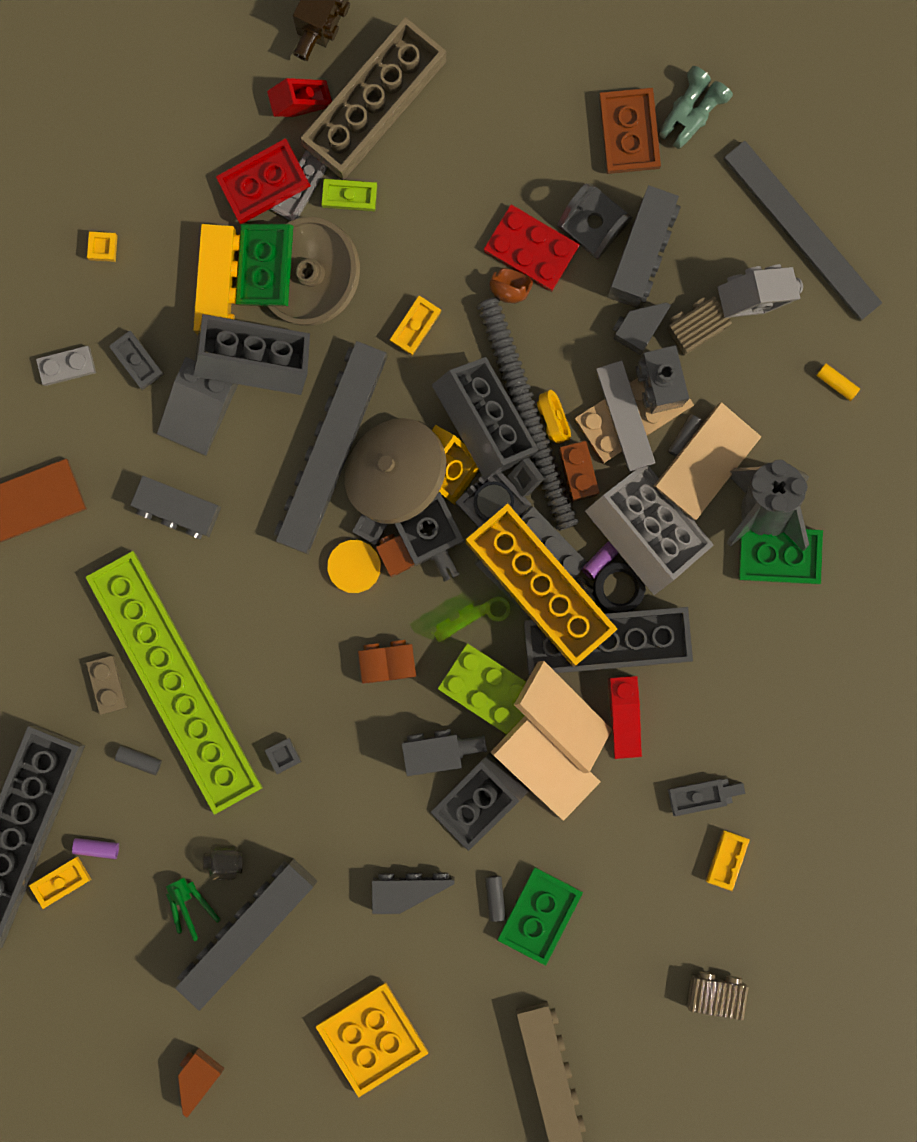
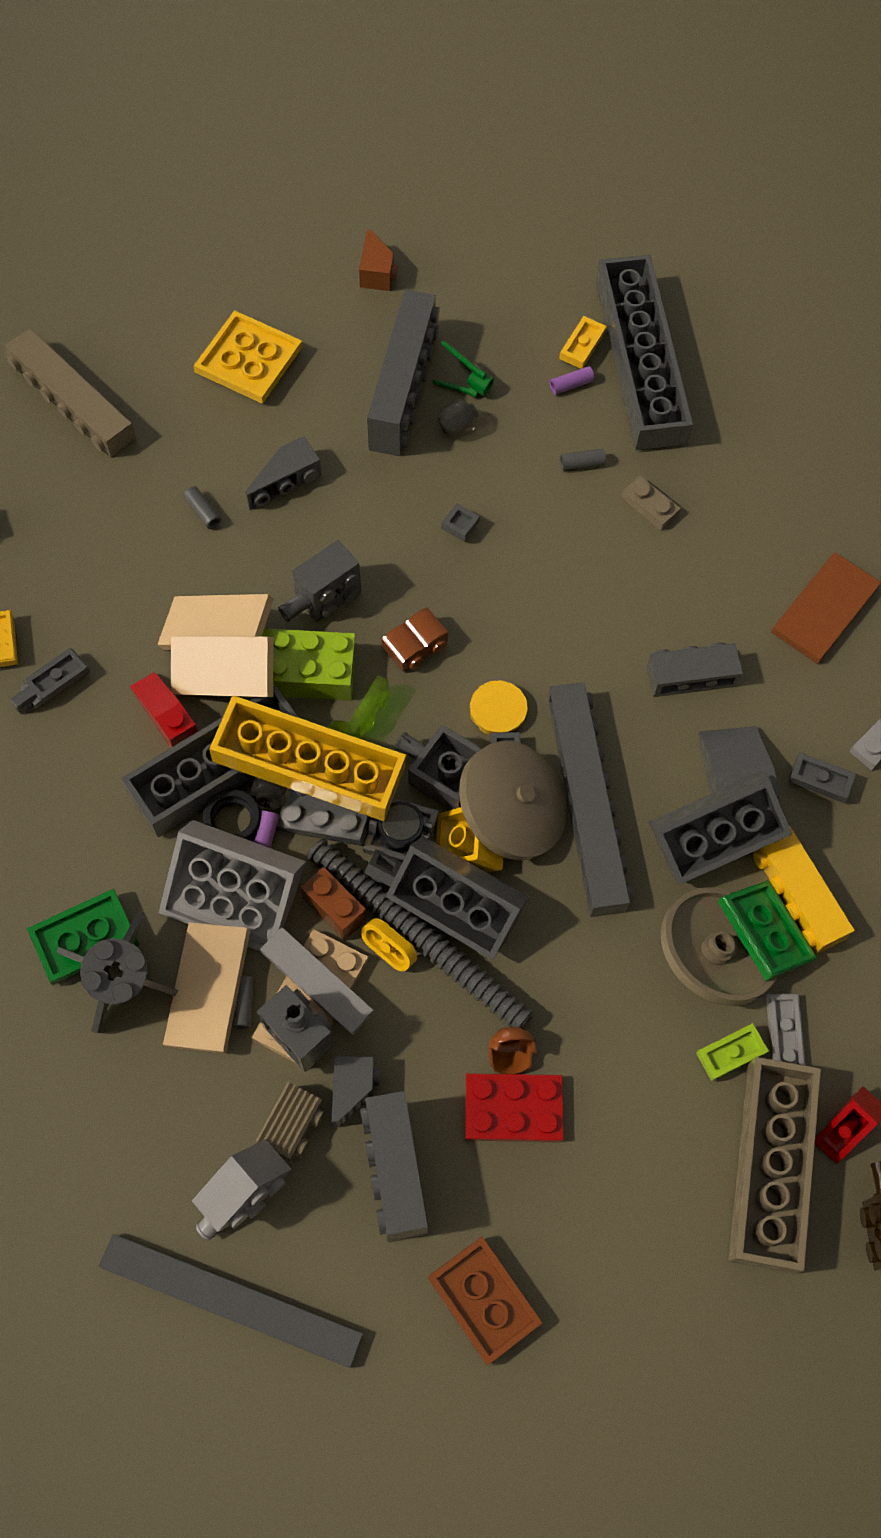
camera: 145 degrees right, 20 degrees down
(174, 682) = (596, 532): lime plate -> none
(263, 181) = (825, 1013): red plate -> none
(394, 555) = (469, 728): dark orange brick -> none
(415, 325) = (581, 958): yellow plate -> none
(480, 801) = (261, 567): dark grey slope -> none
(540, 916) = (153, 512): green plate -> none
(591, 202) = (475, 1196): dark grey hose -> none
(683, 108) = (432, 1356): sand green piece -> none
(838, 382) = (107, 1150): yellow hinge -> none

